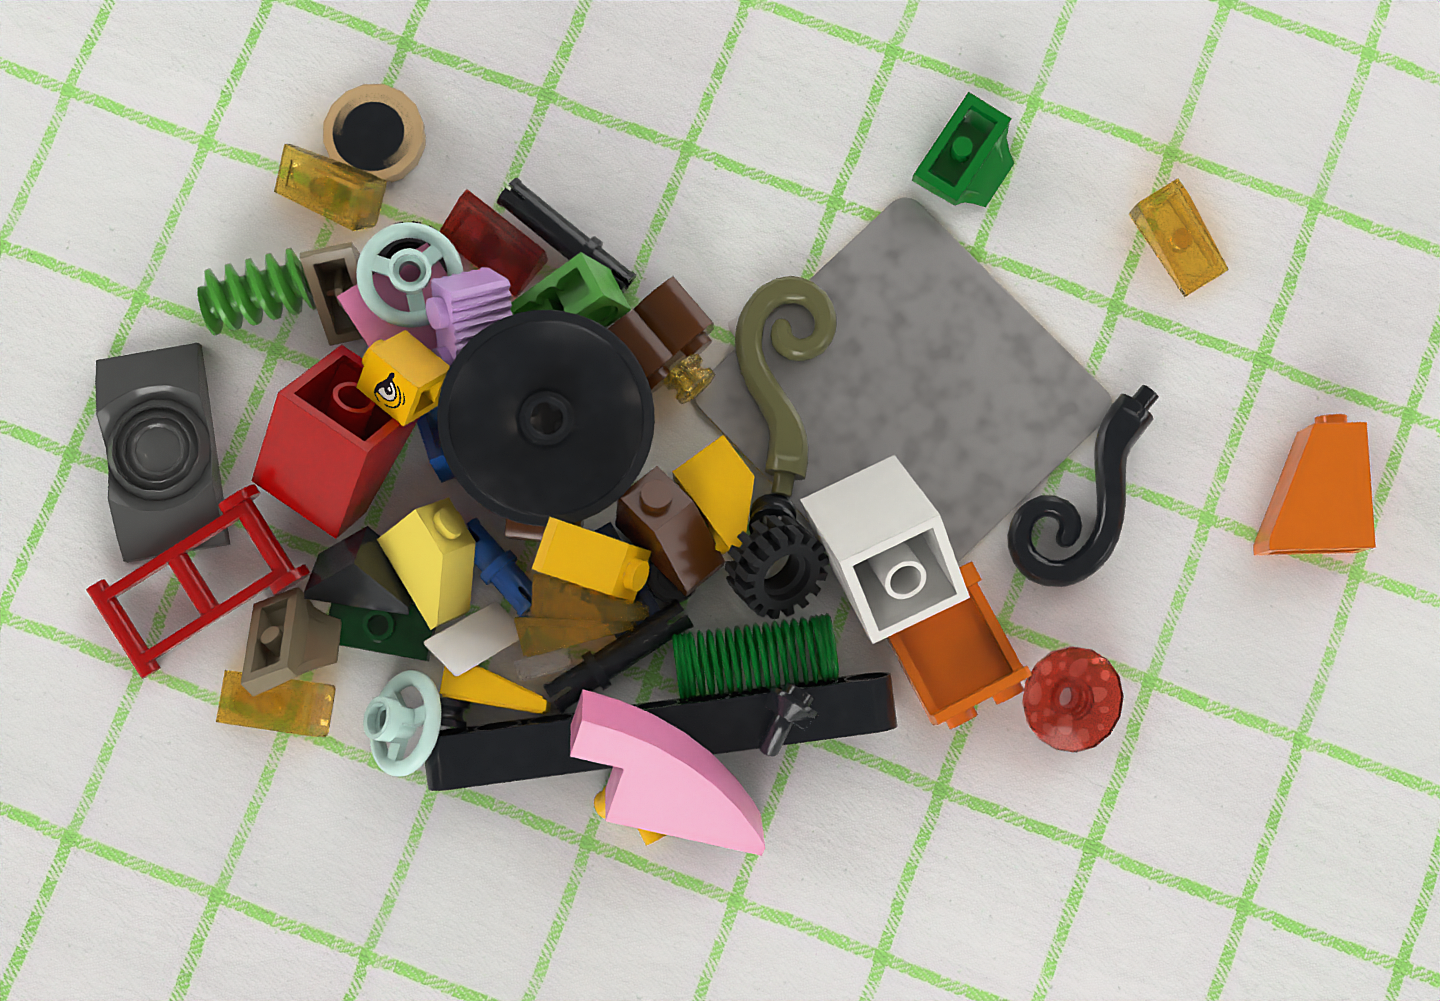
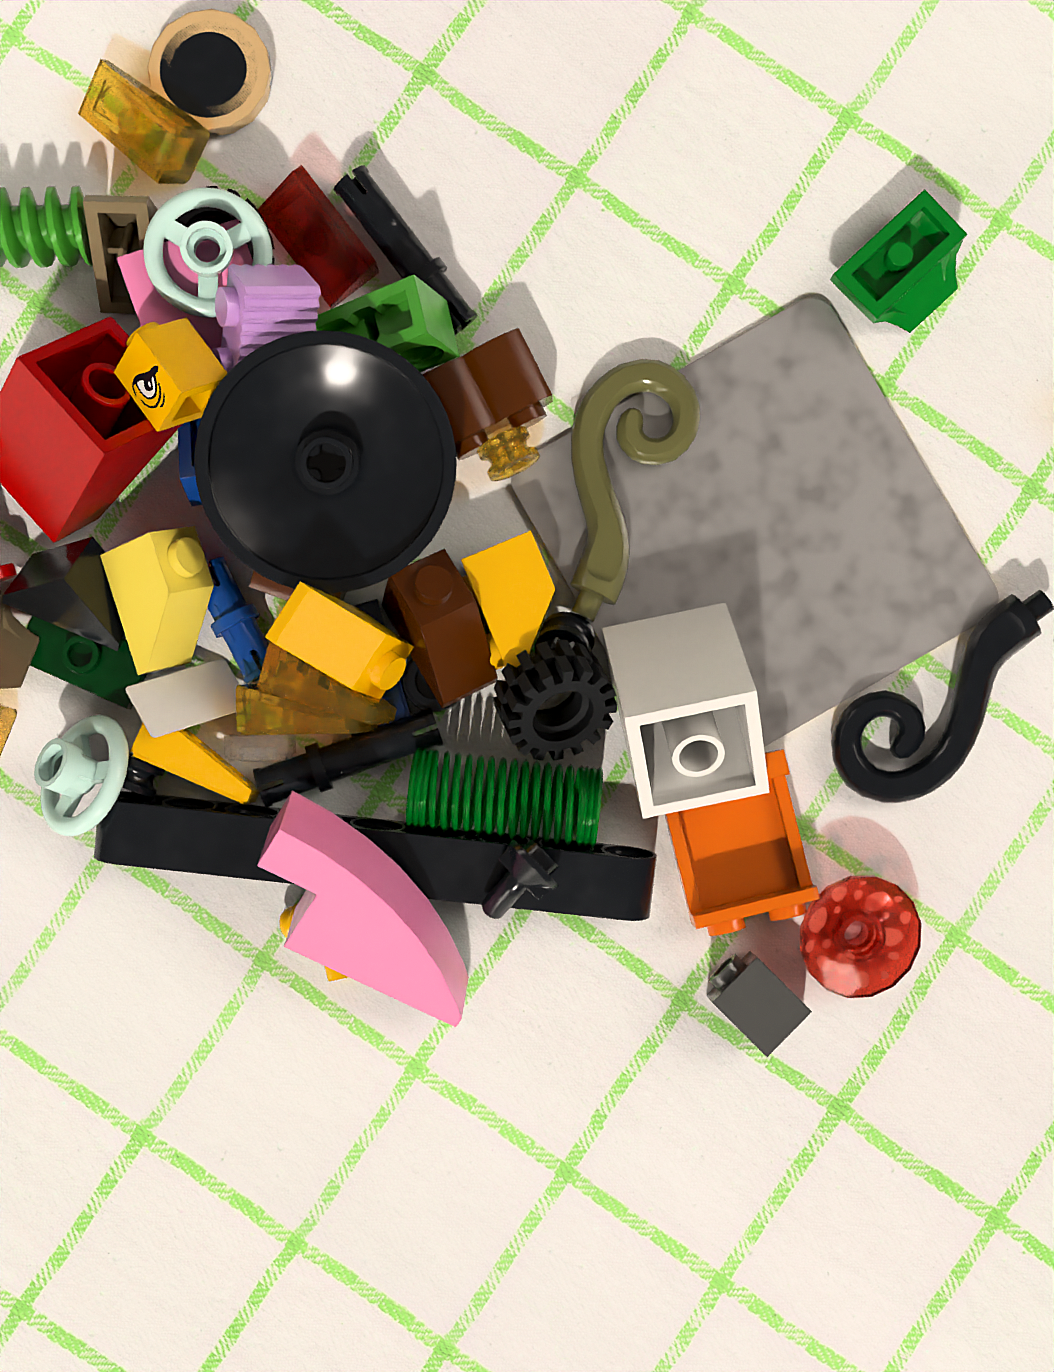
camera: 20 degrees right, 5 degrees up
(1002, 773) = (756, 1001): none -> dark grey brick

